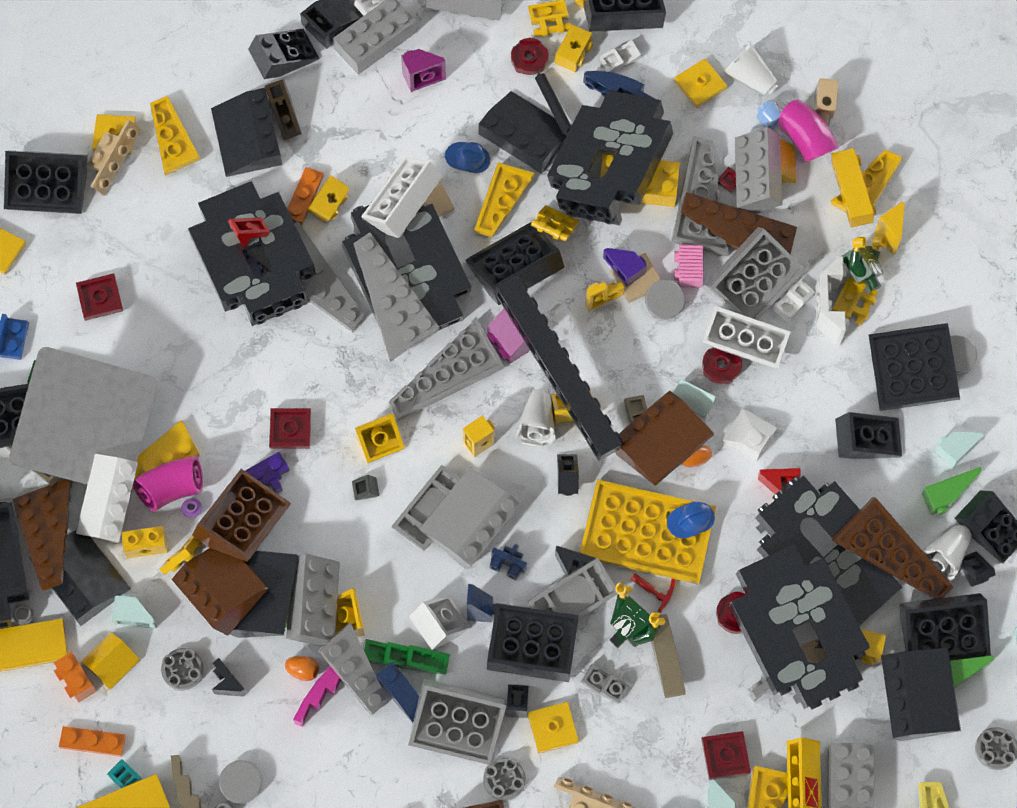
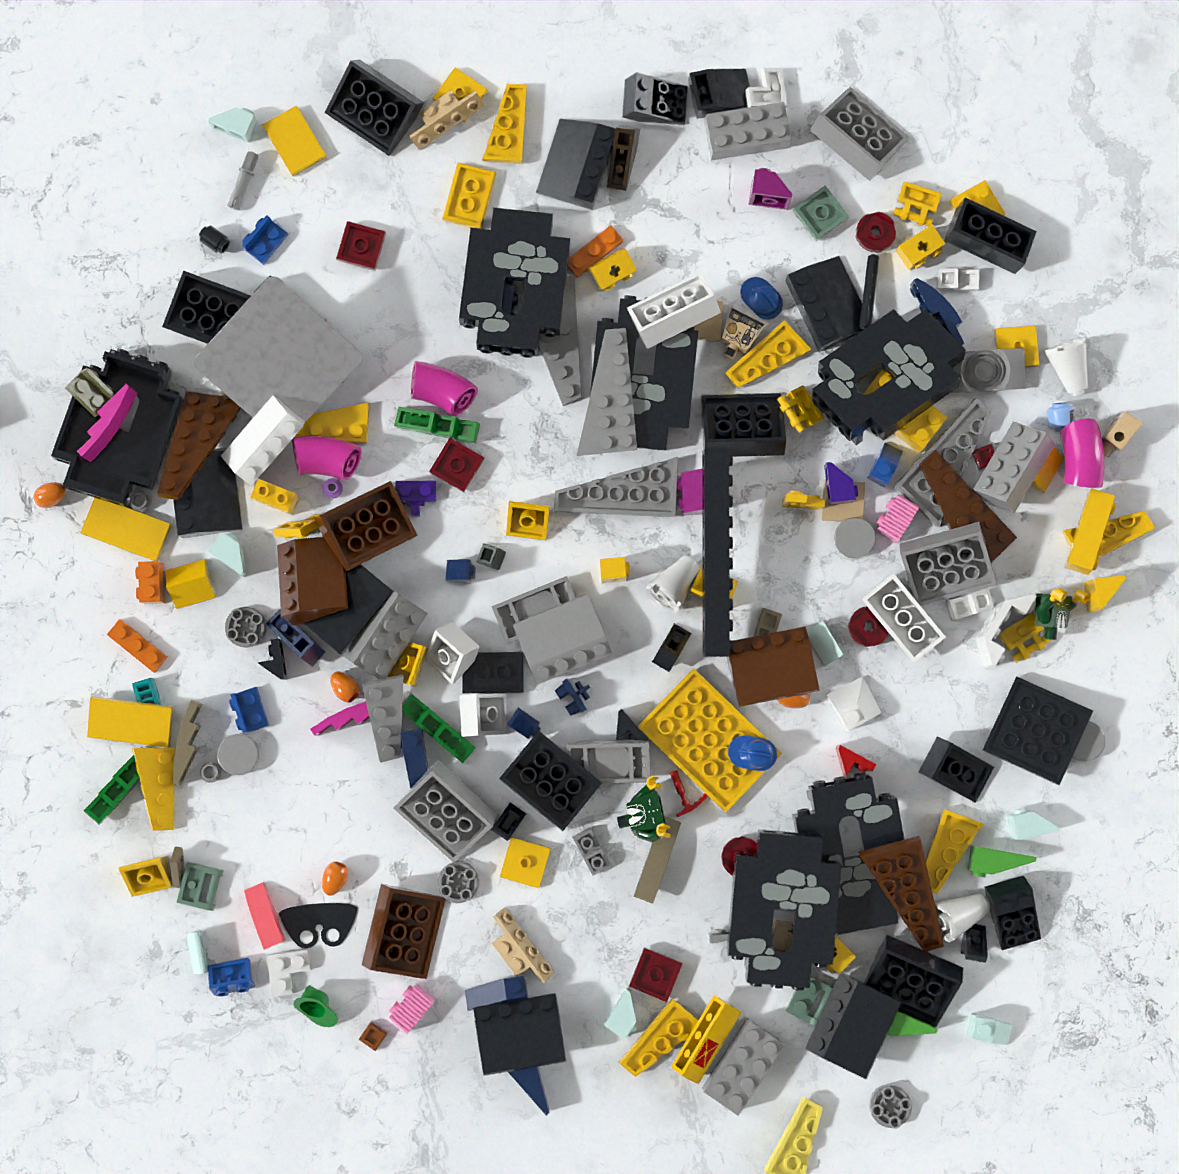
camera: 30 degrees right, 15 degrees up
(169, 208) = (469, 196): none -> yellow tile
(228, 738) = (249, 710): none -> blue bracket
(235, 651) = (296, 639): none -> dark blue slope
(238, 370) = (442, 388): none -> dark pink brick
(248, 228) = (520, 261): red slope -> none
(252, 405) = (436, 424): none -> green slope
(346, 511) = (460, 571): none -> dark blue slope
(379, 583) = (451, 652): none -> white slope
(426, 582) = (495, 673): none -> black tile
(467, 192) = (740, 333): none -> torso
(475, 65) = (820, 213): none -> sand green plate
(653, 231) = (885, 465): none -> blue slope
(693, 110) = (991, 370): none -> light grey slope
(865, 700) = (803, 1000): none -> sand green plate
(902, 498) = (948, 845): none -> yellow wing

